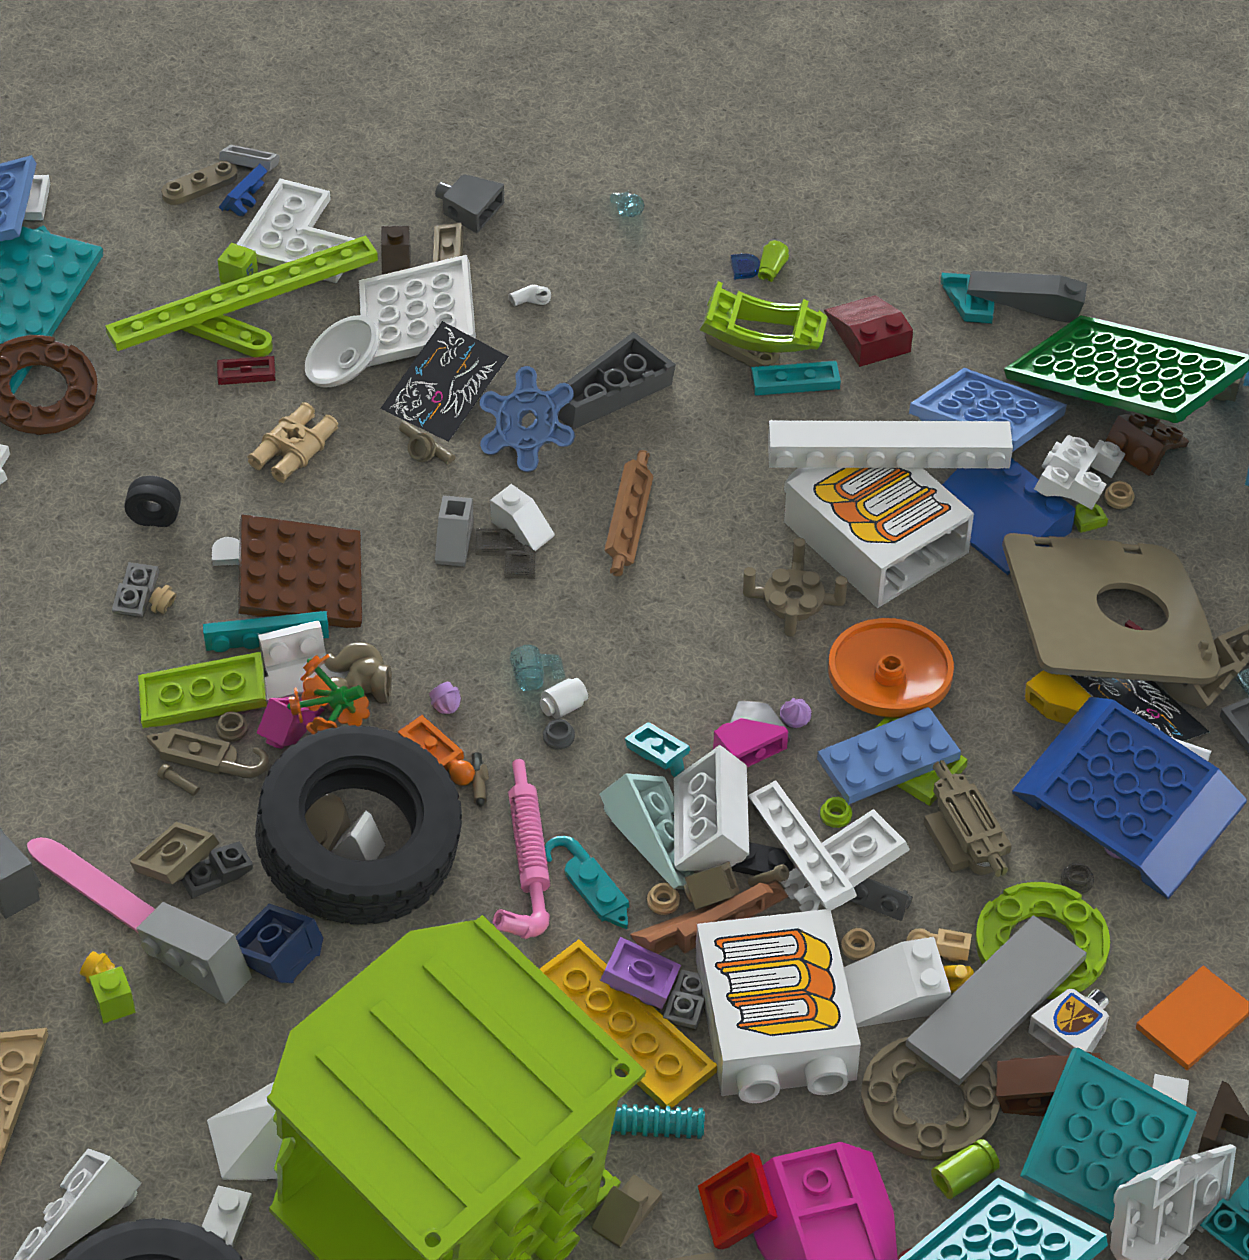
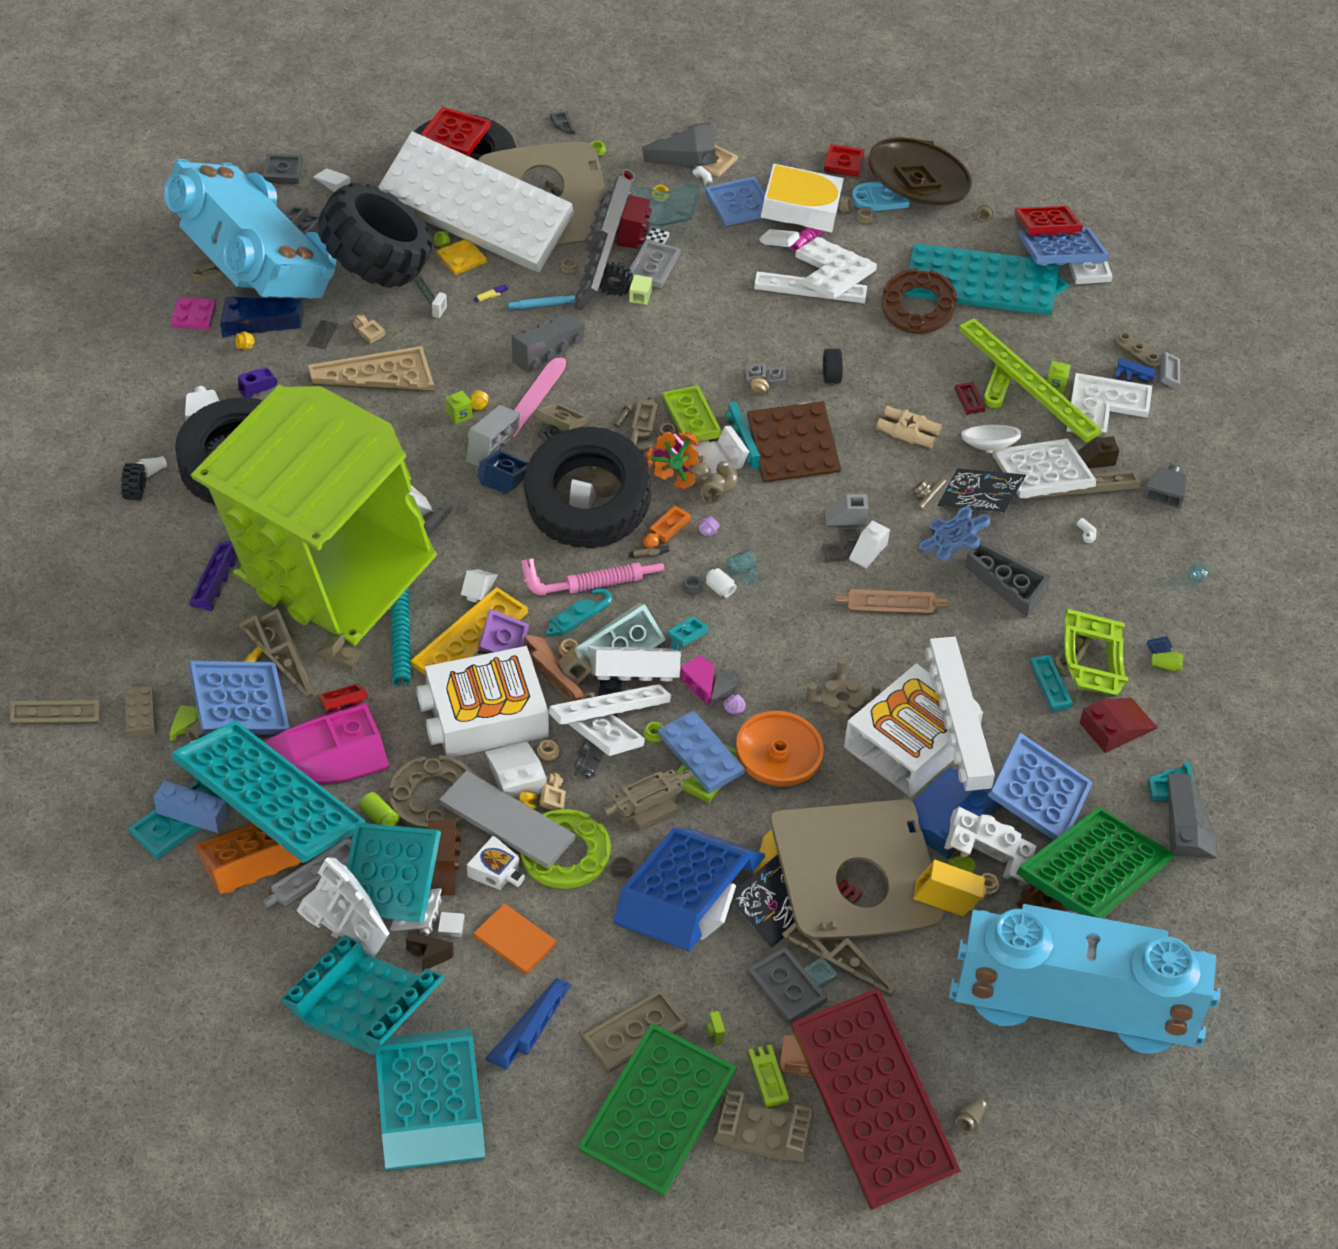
camera: 80 degrees right, 0 degrees up
(1150, 519) = (949, 888): none -> yellow brick

